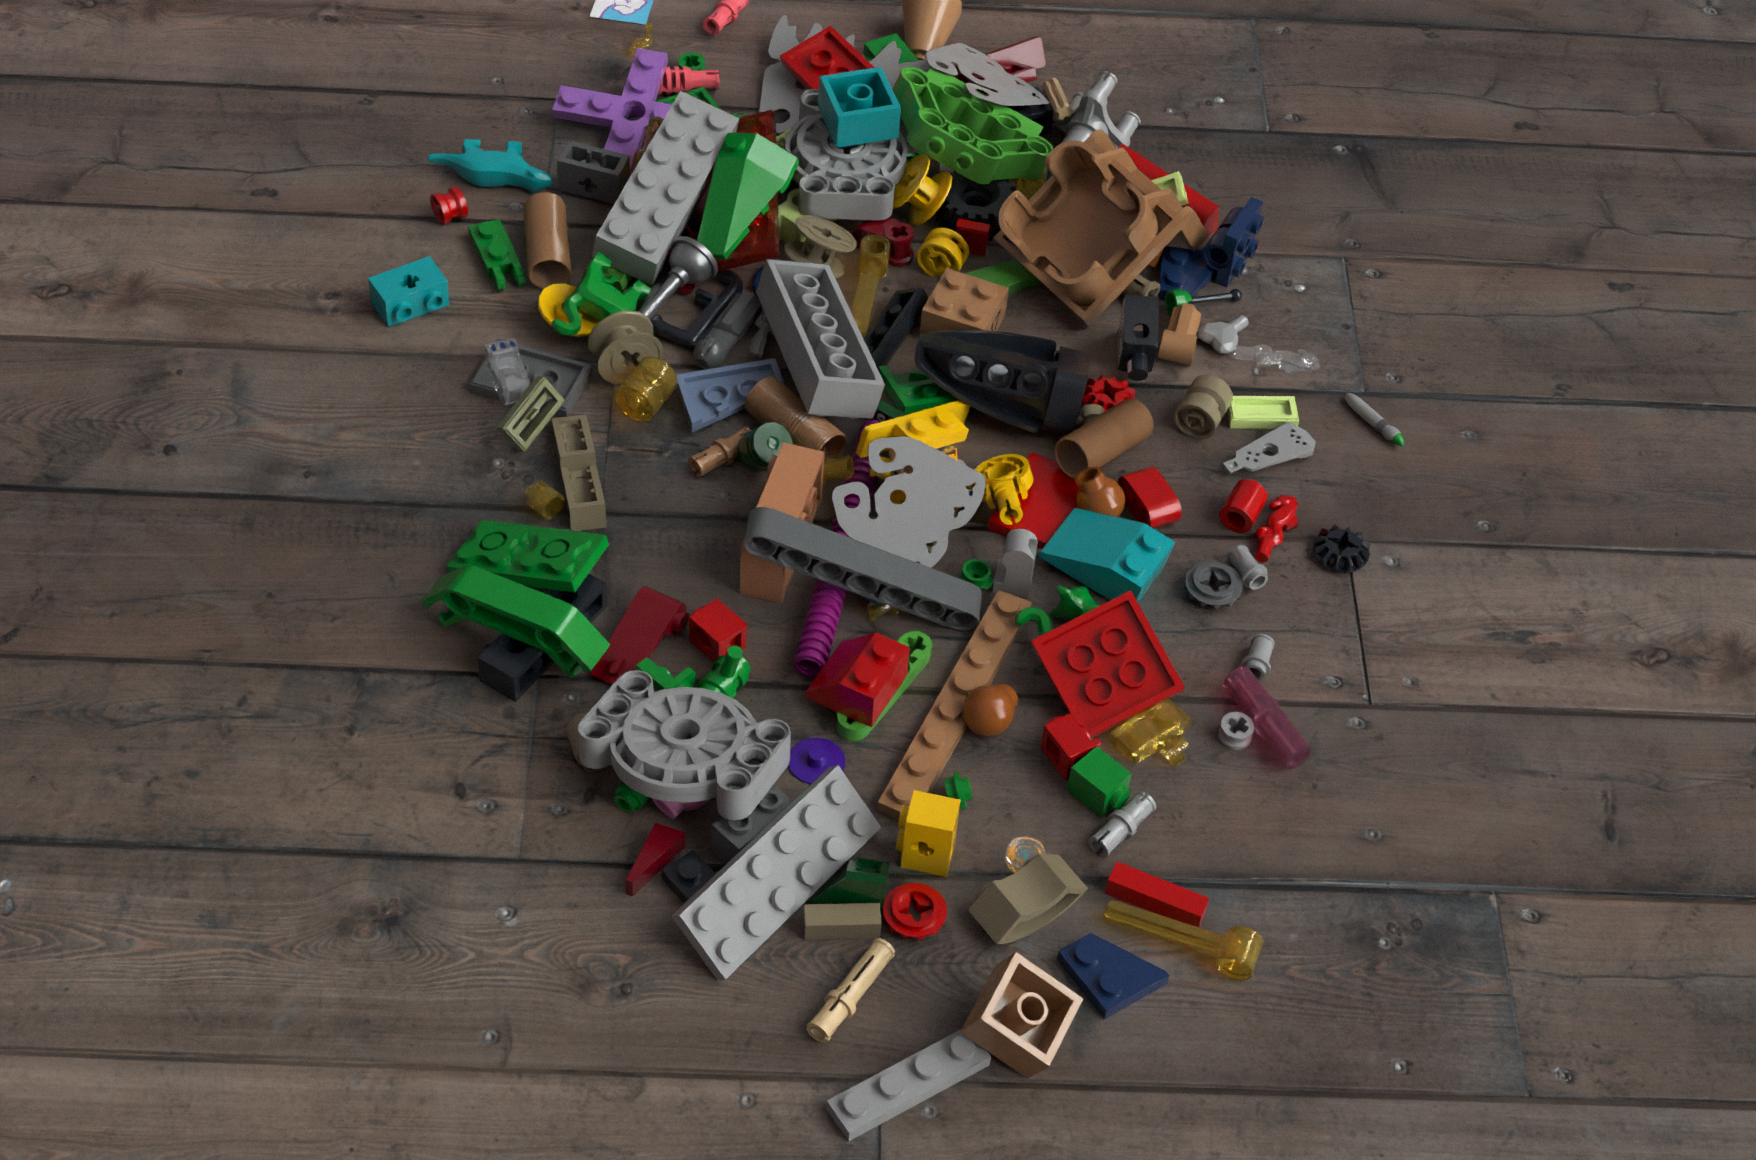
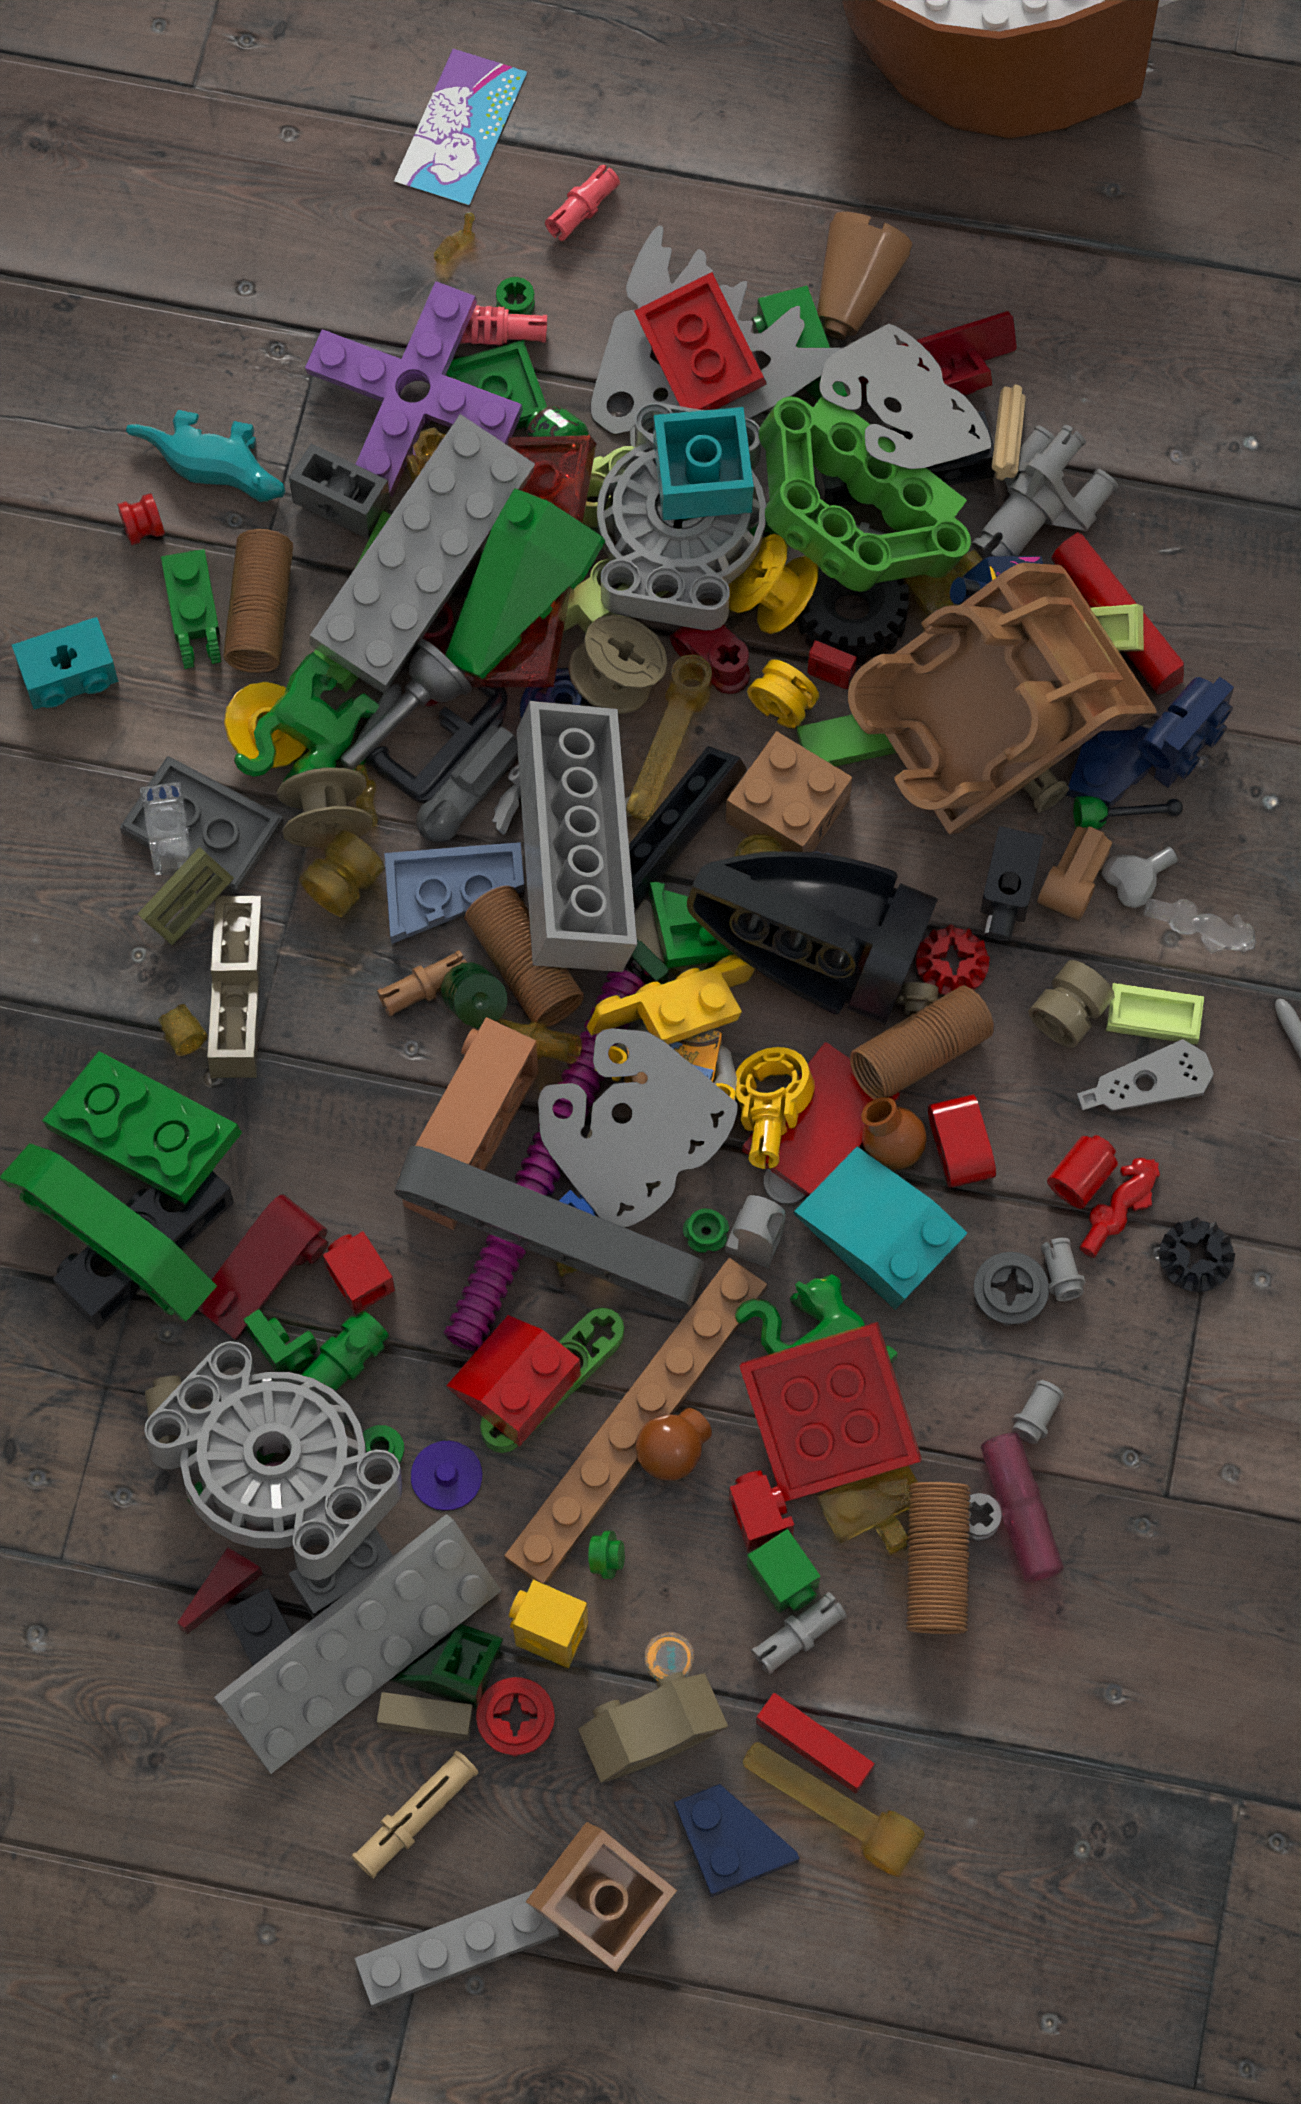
camera: 15 degrees right, 20 degrees up
(1219, 756) = (940, 1569): none -> medium nougat piece

